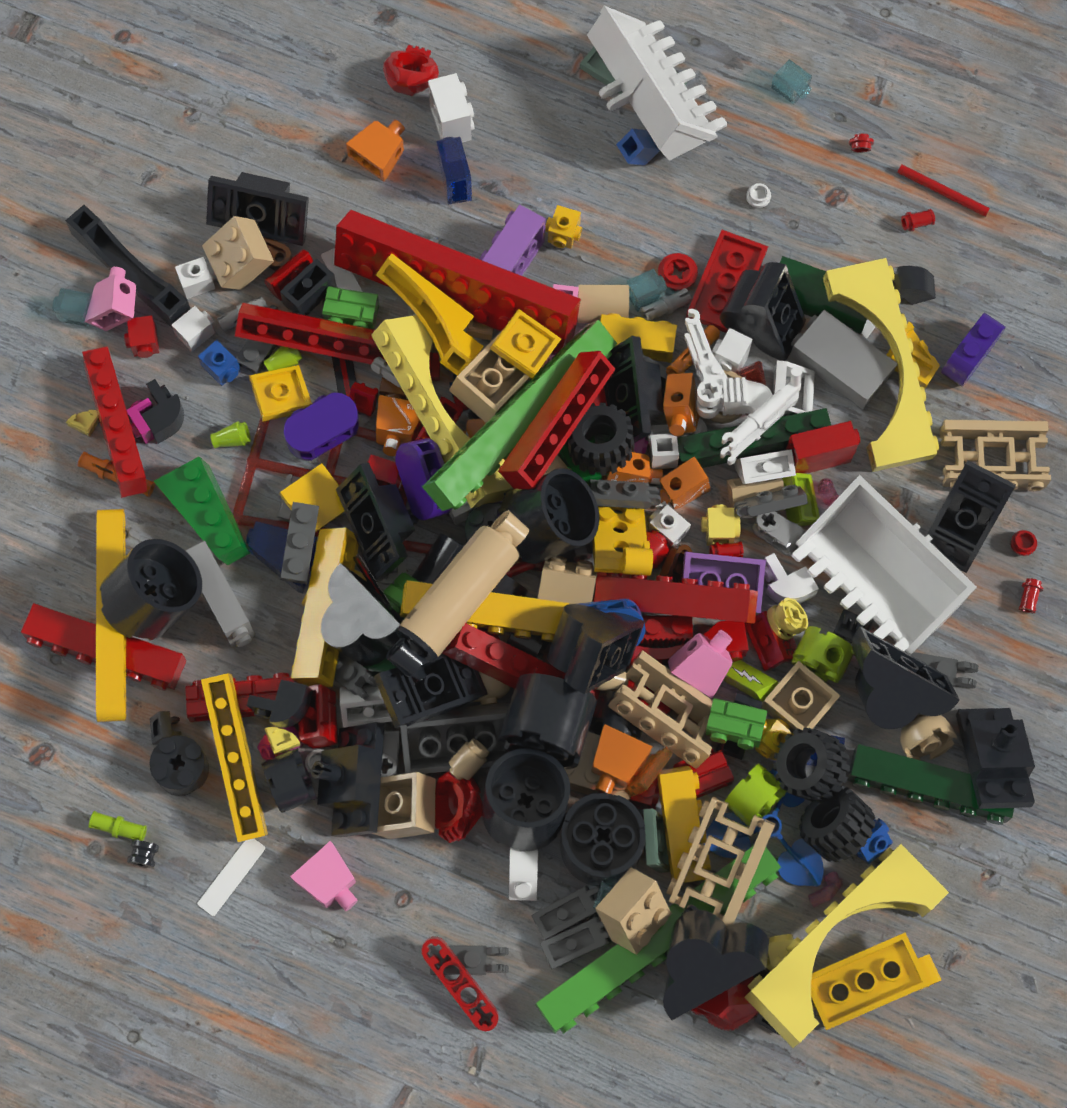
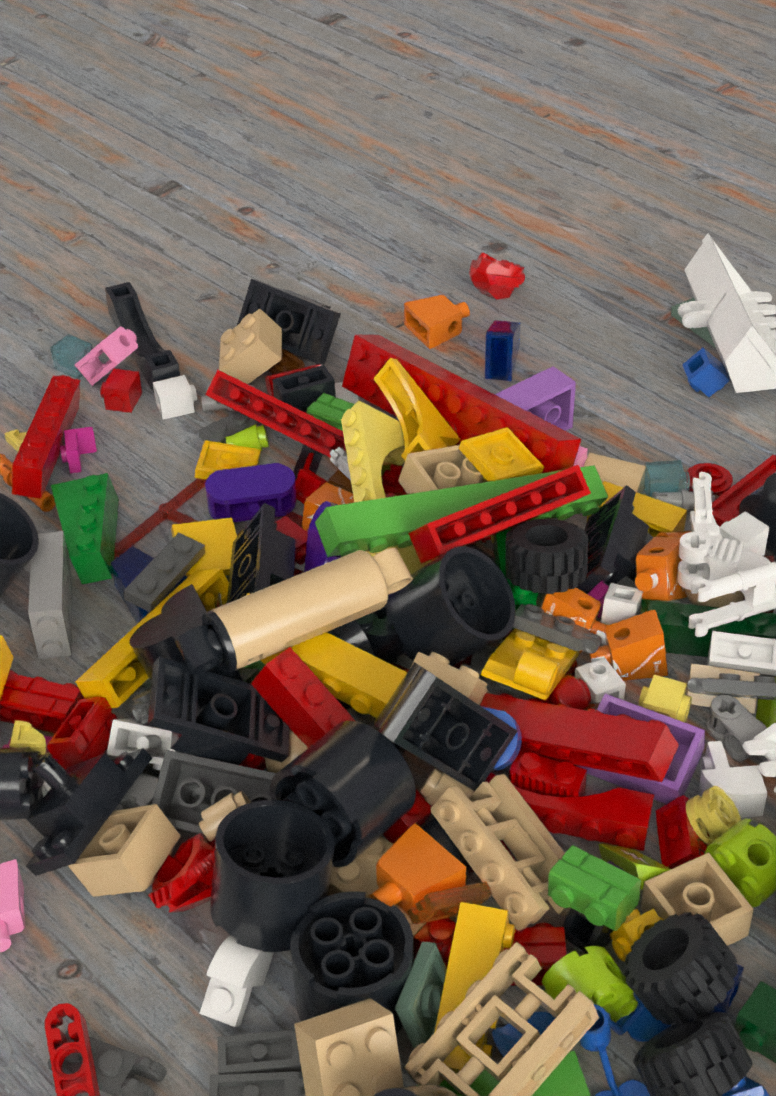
camera: 25 degrees right, 30 degrees down
(166, 416) = (101, 451): black brick -> none
(196, 277) = (200, 362): white brick -> none
(219, 363) = (181, 426): blue brick -> none
(232, 435) = (158, 483): lime cone -> none
(288, 707) = (52, 701): black brick -> none
(450, 107) = (523, 300): white brick -> none
(564, 227) = (596, 411): yellow brick -> none
(703, 662) = (581, 814): bright pink torso -> none

